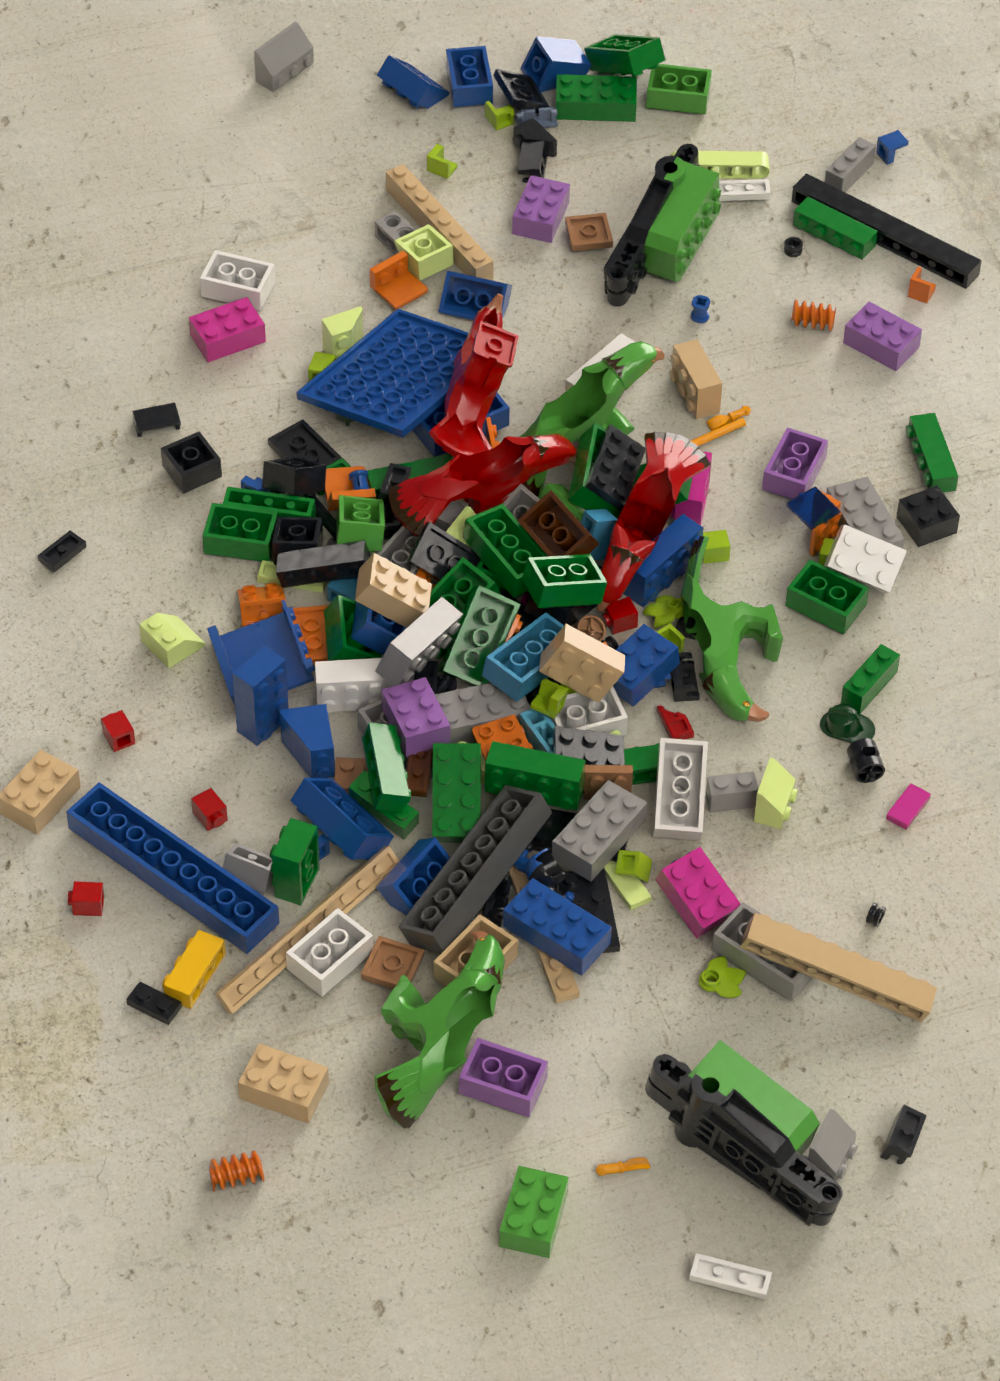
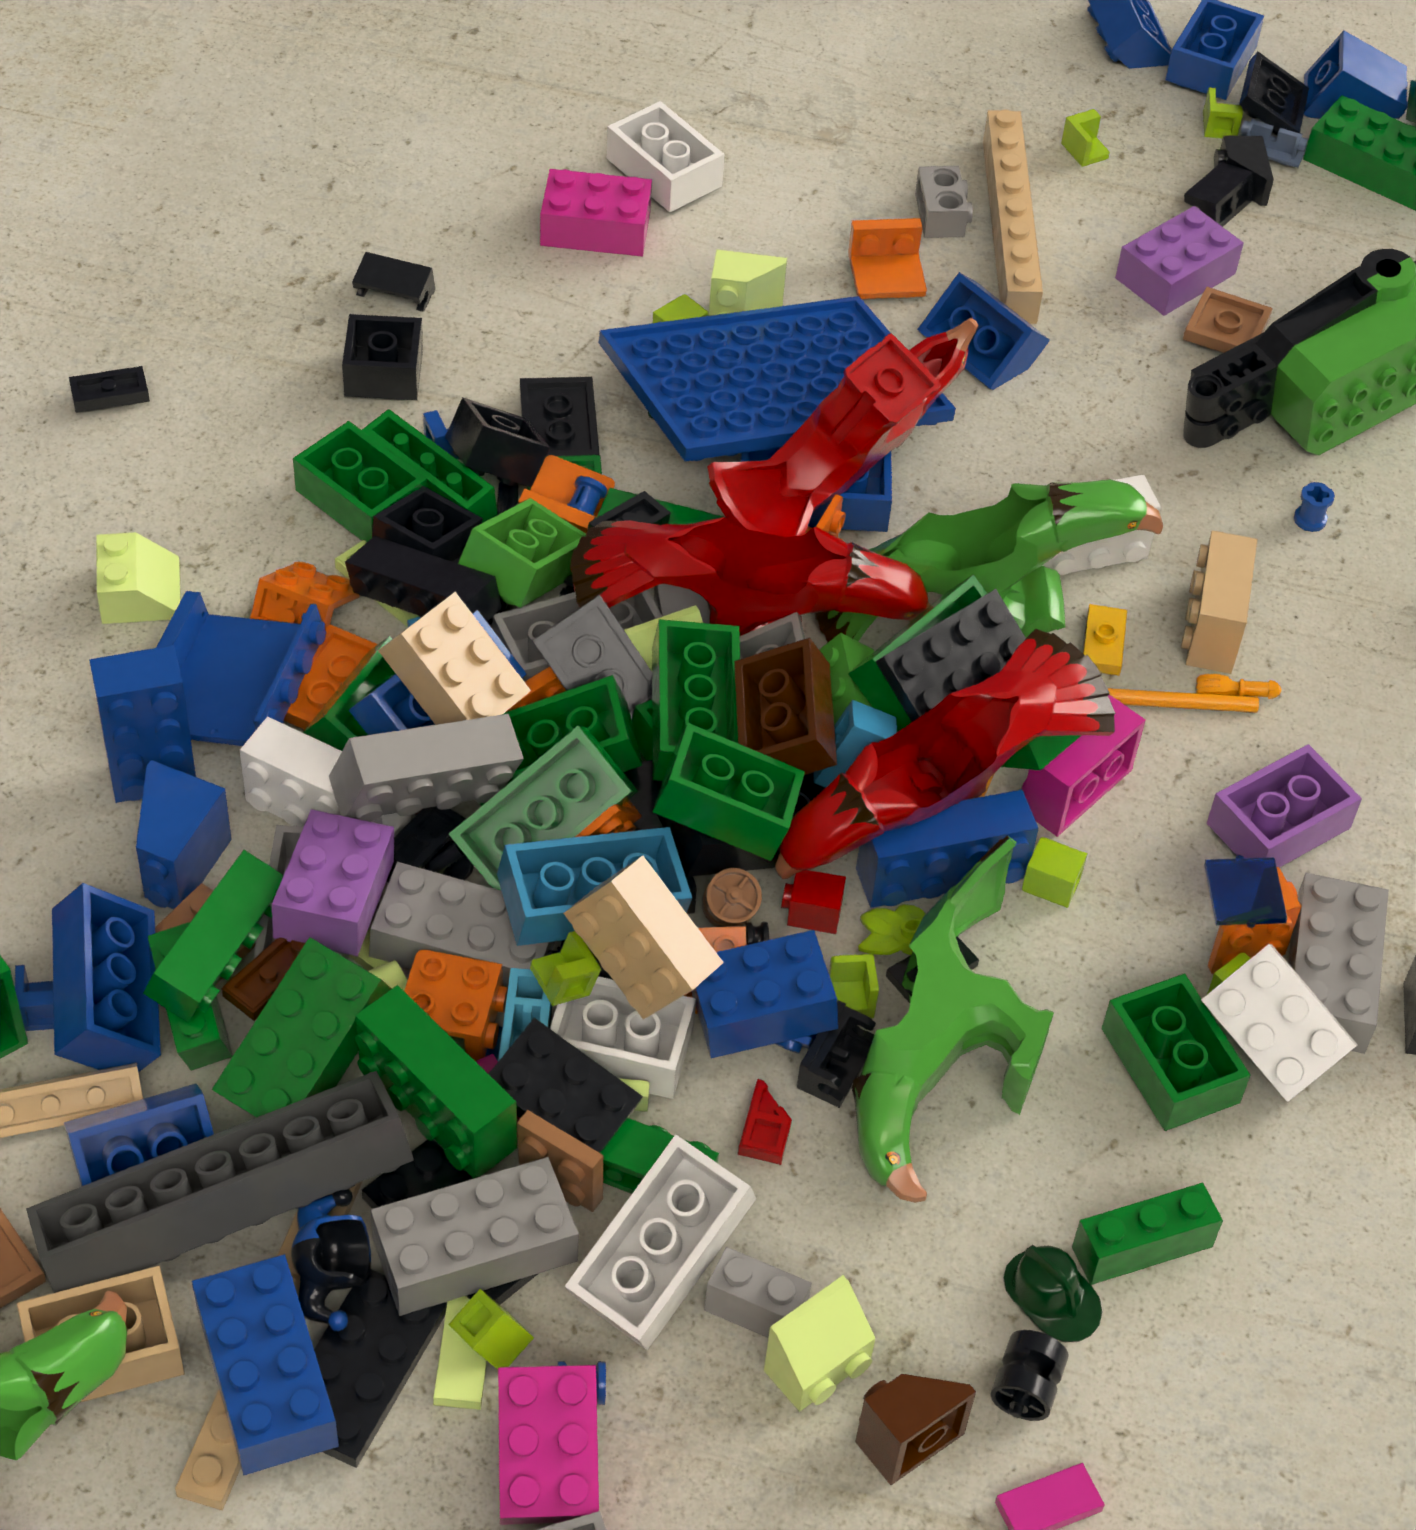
camera: 30 degrees right, 0 degrees up
(426, 251) = (957, 239): yellowish green slope -> none
(497, 902) = (231, 1252): black hinge -> none
(648, 421) = (1105, 637): none -> yellow plate
(834, 803) = (911, 1421): none -> reddish brown slope

